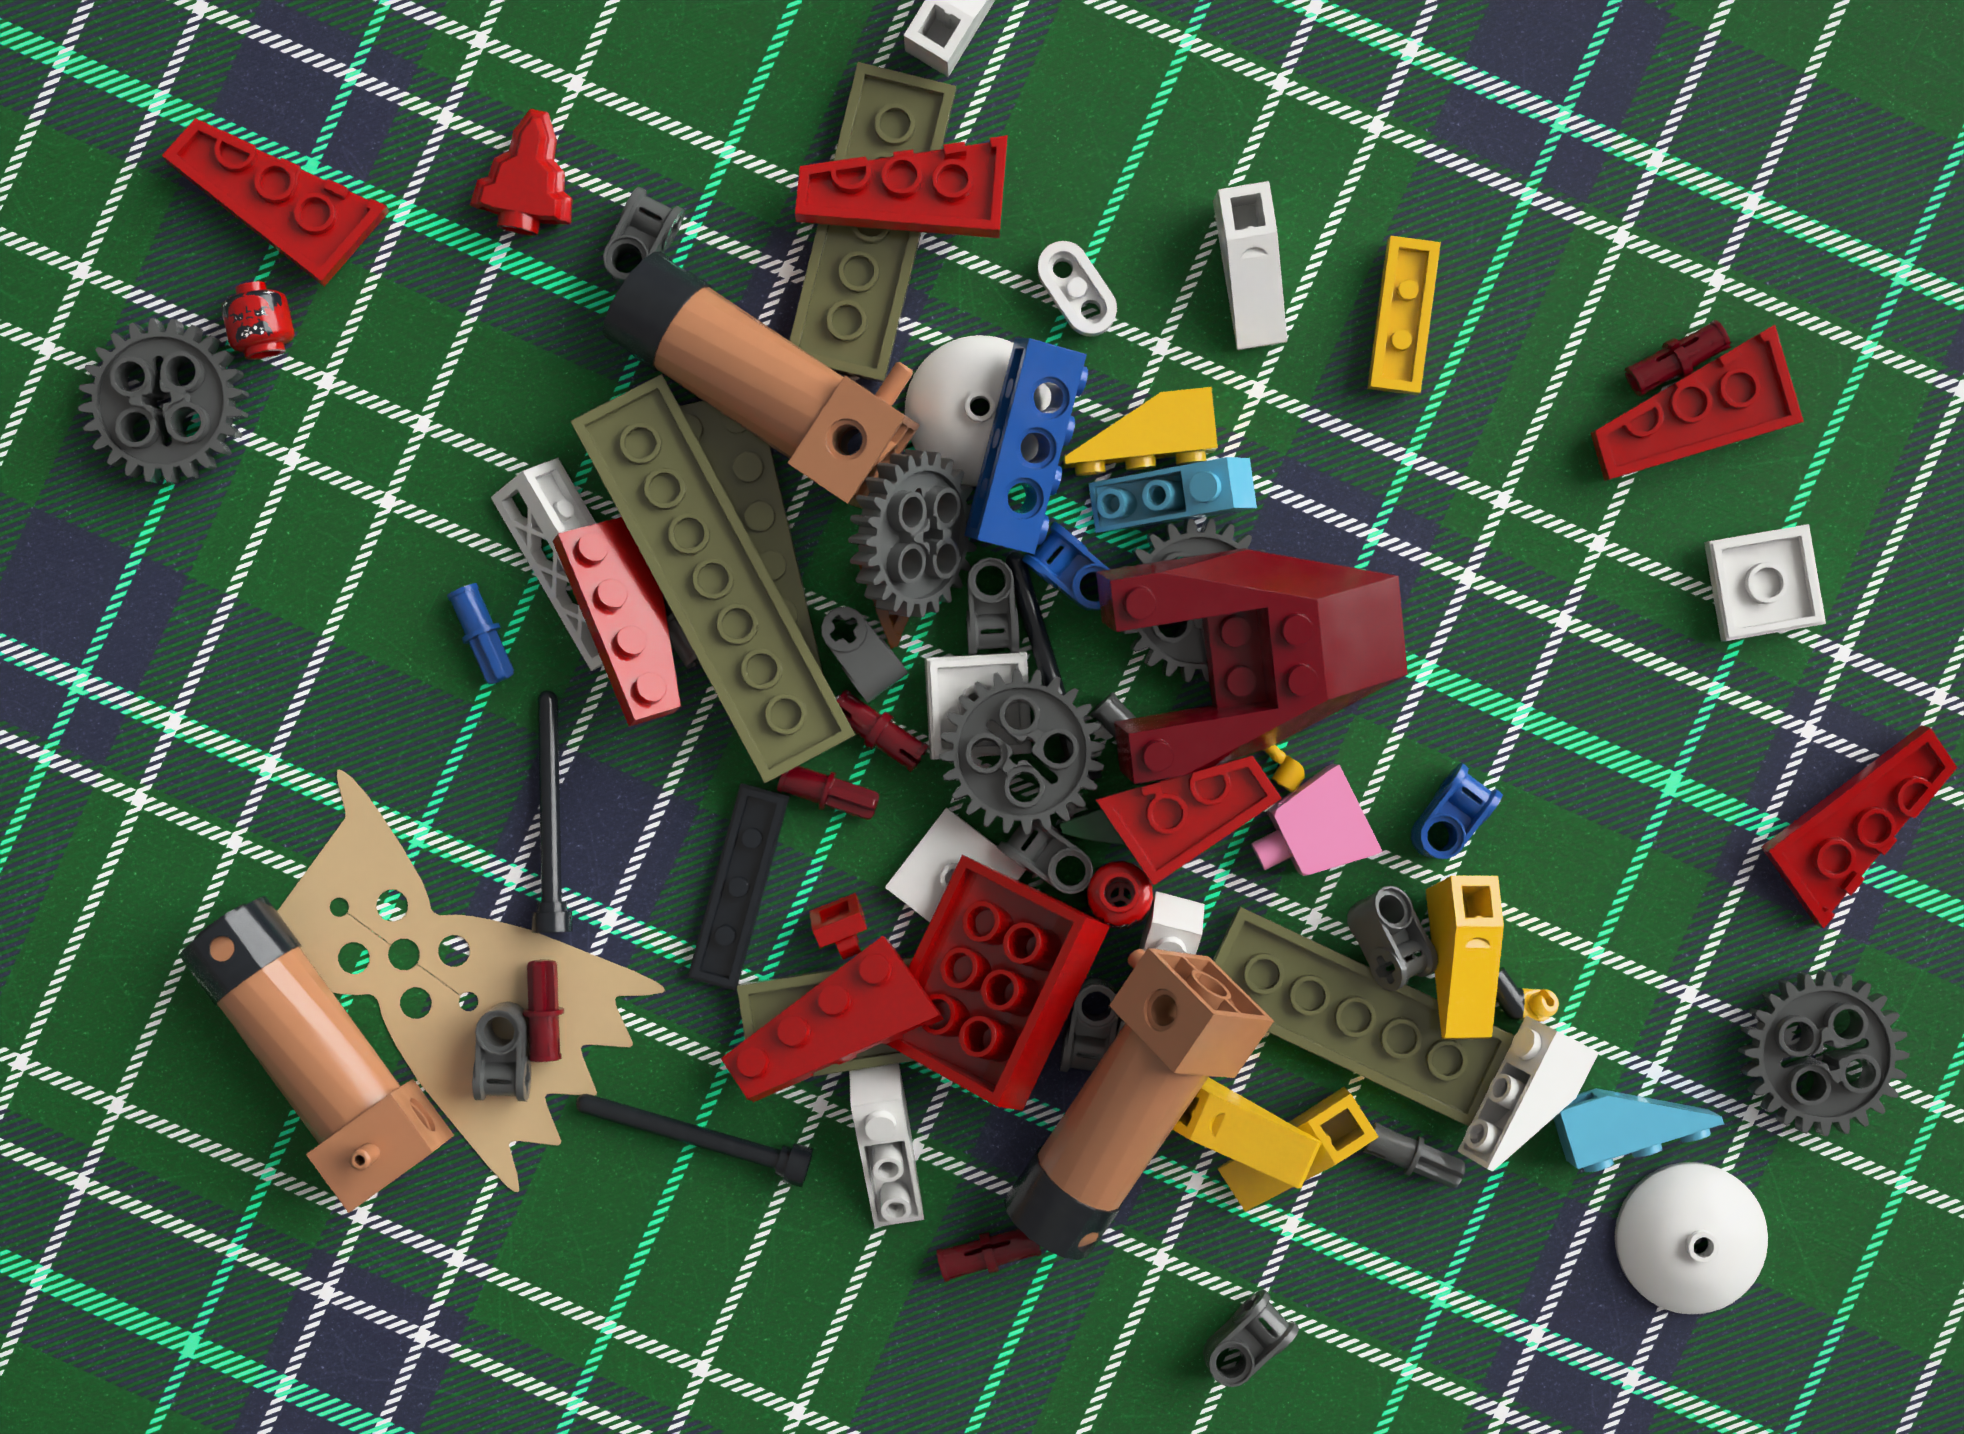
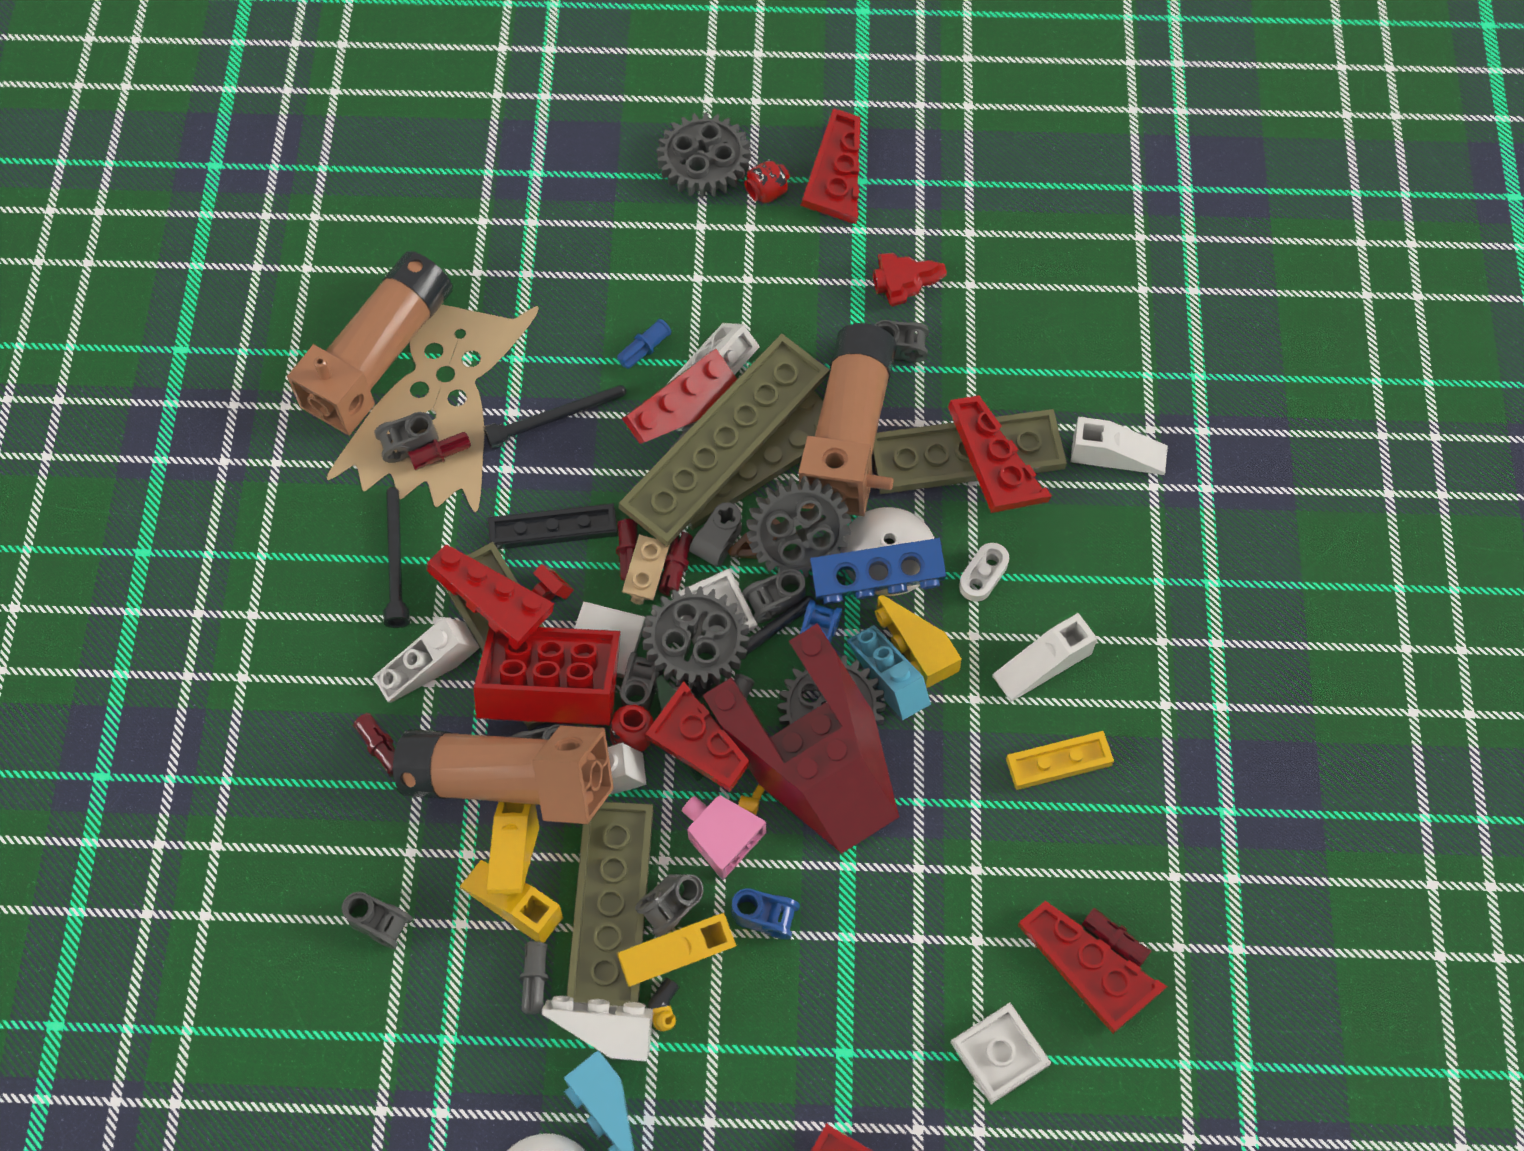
camera: 75 degrees right, 25 degrees down
(875, 779) = (645, 569): none -> tan hinge

